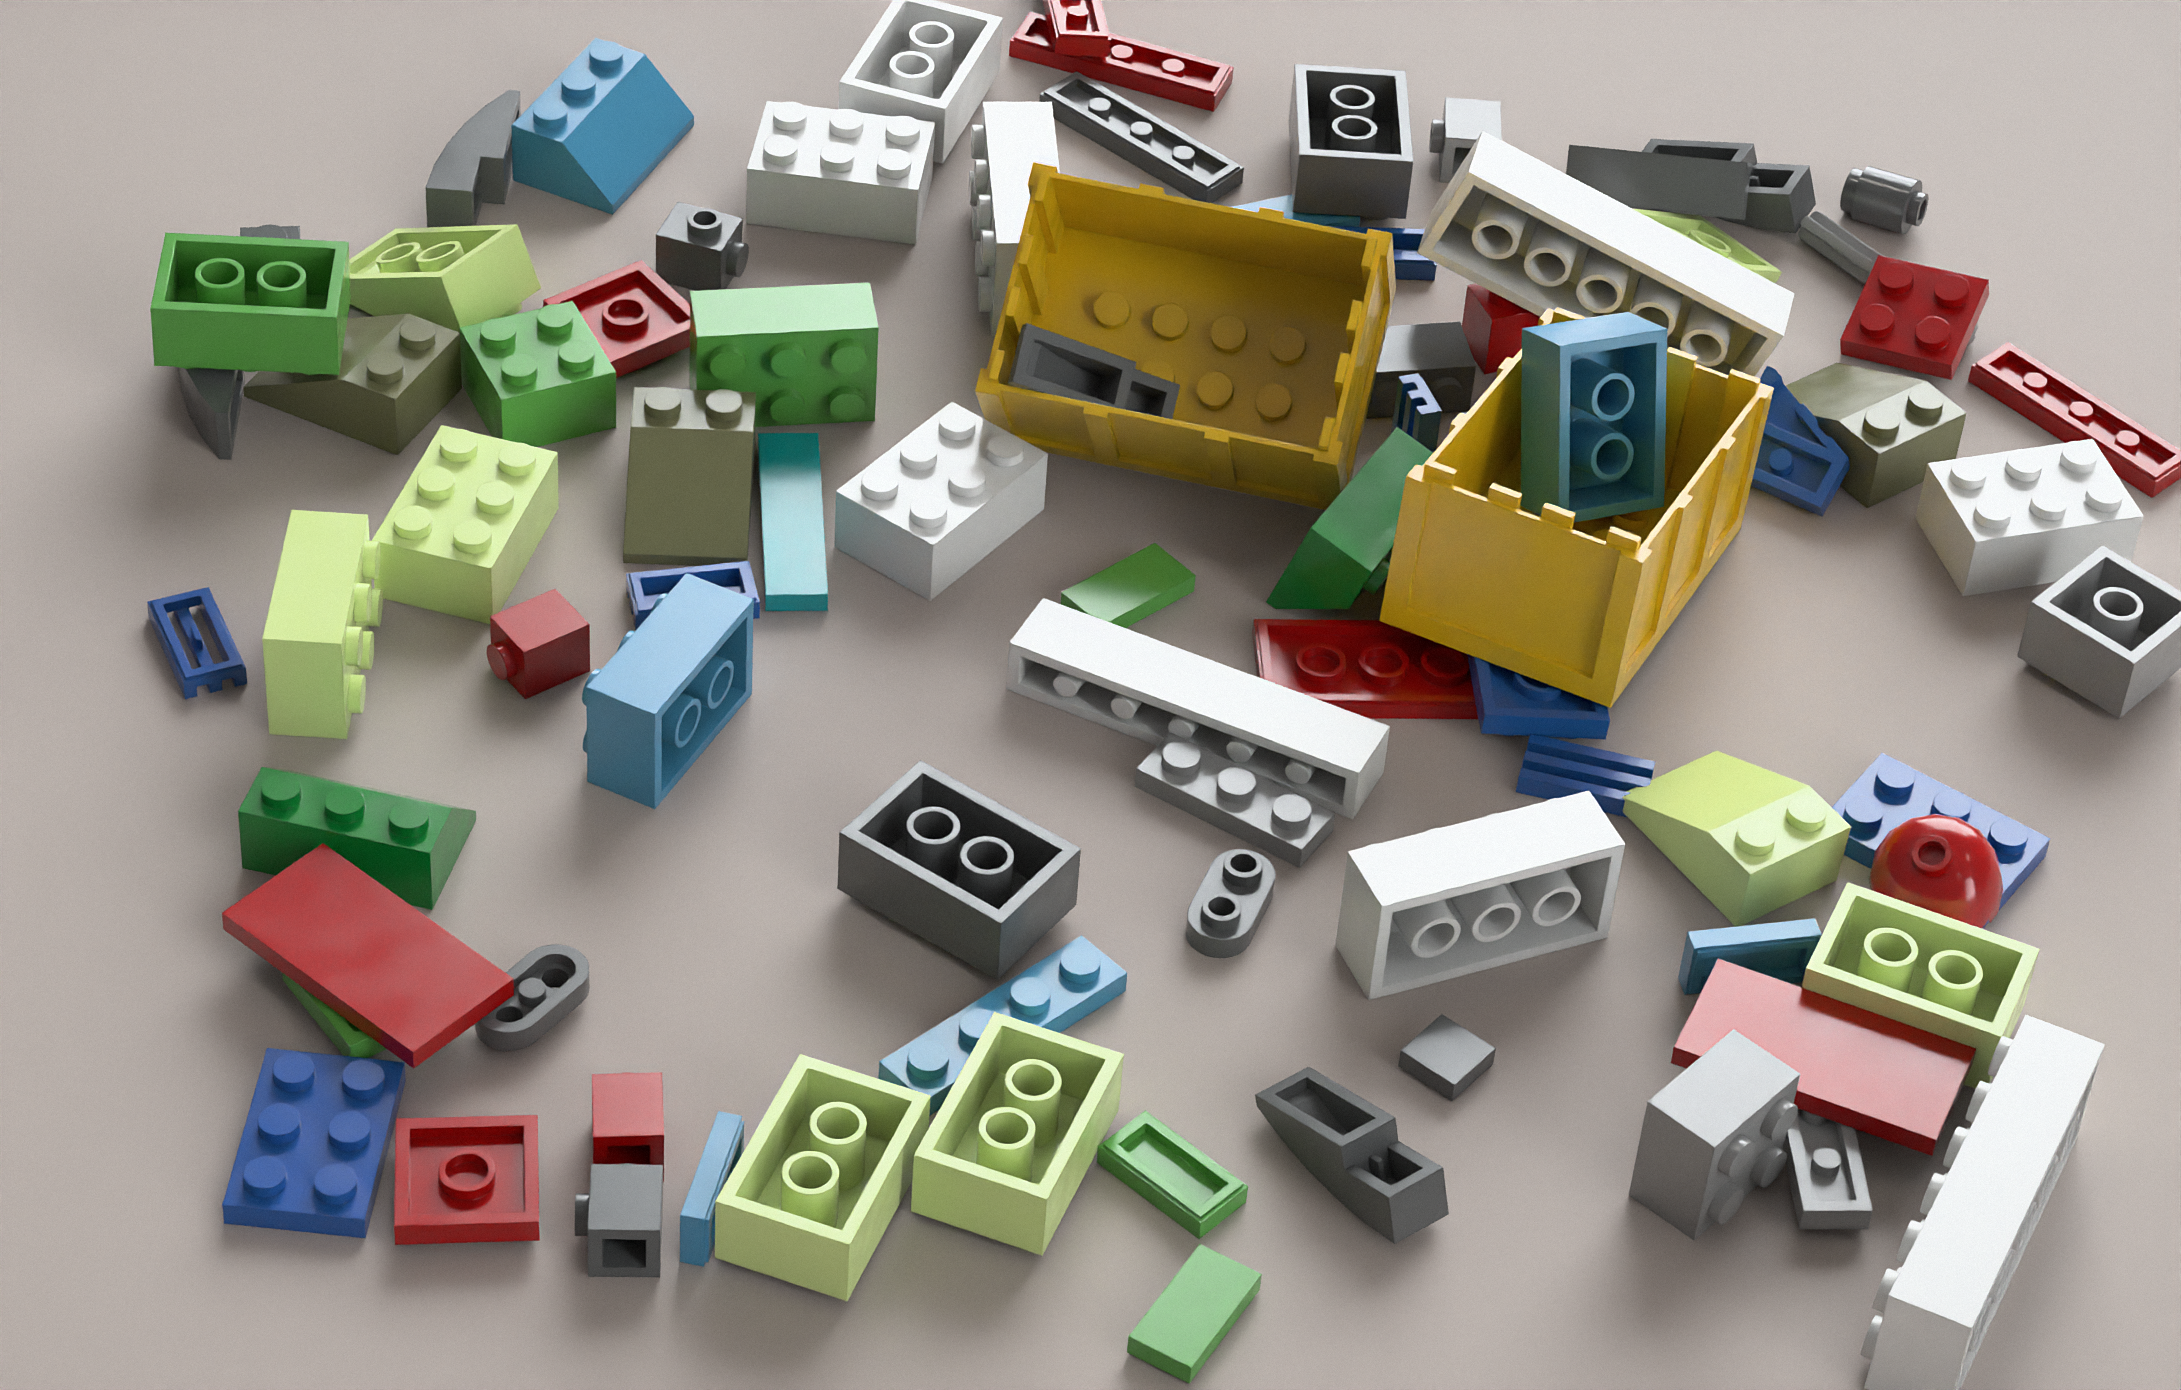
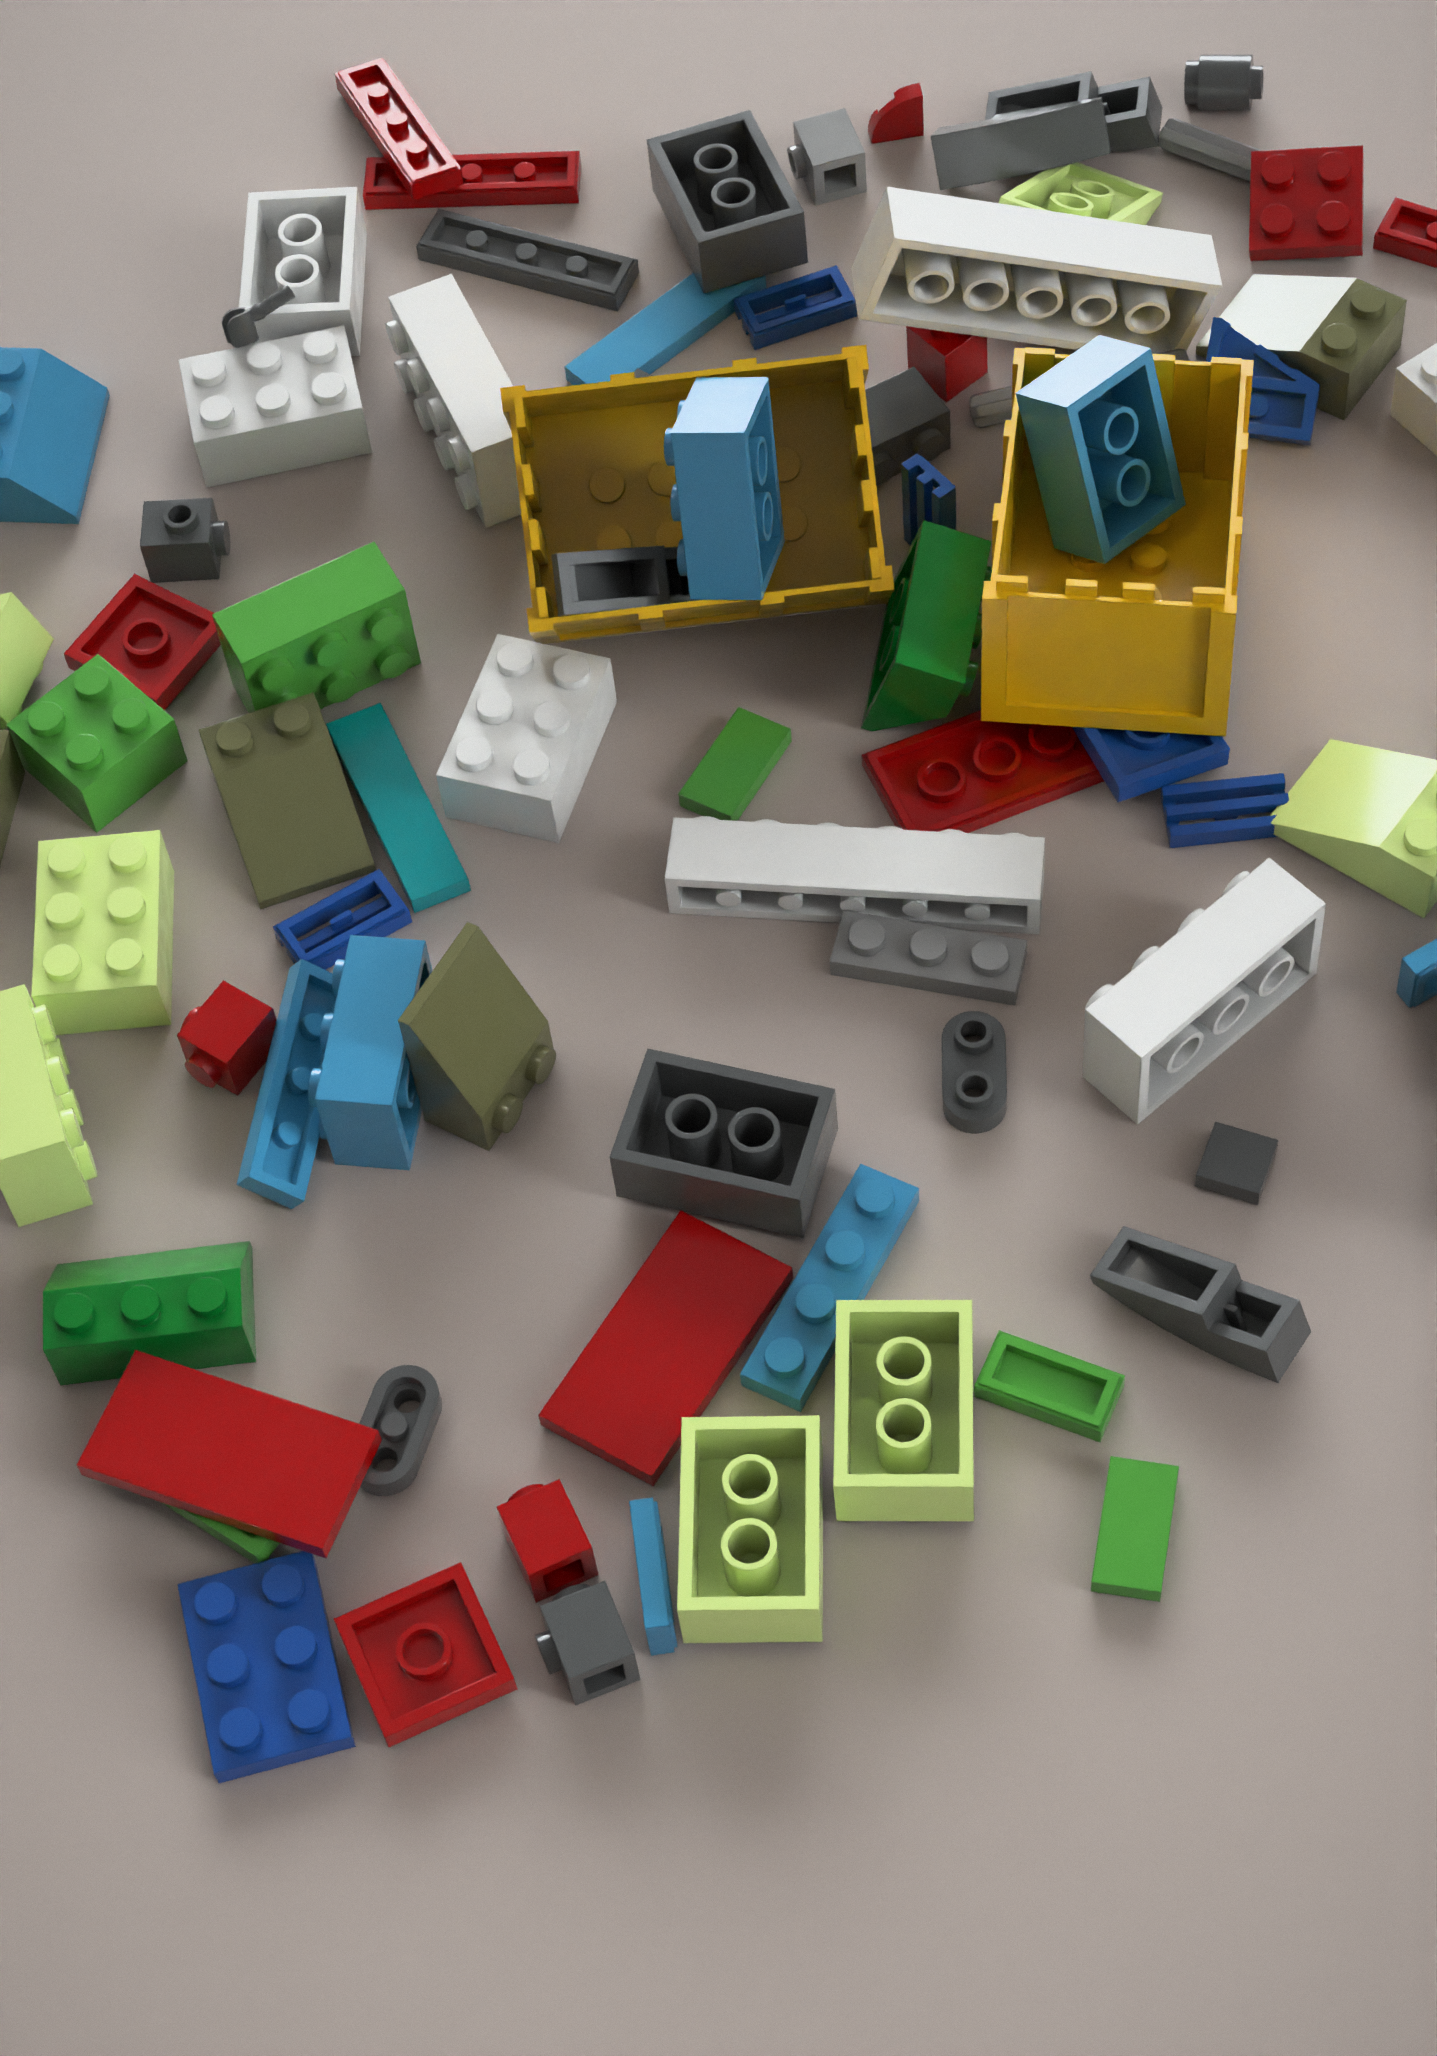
camera: 10 degrees left, 15 degrees up
(555, 724) = (283, 1123): none -> dark azure plate
(760, 702) = (475, 1042): none -> olive slope
(836, 88) = (239, 322): none -> dark grey hand
(836, 1007) = (666, 1347): none -> red tile
(1211, 320) = (726, 488): none -> dark azure brick
(1553, 131) = (899, 117): none -> red tile

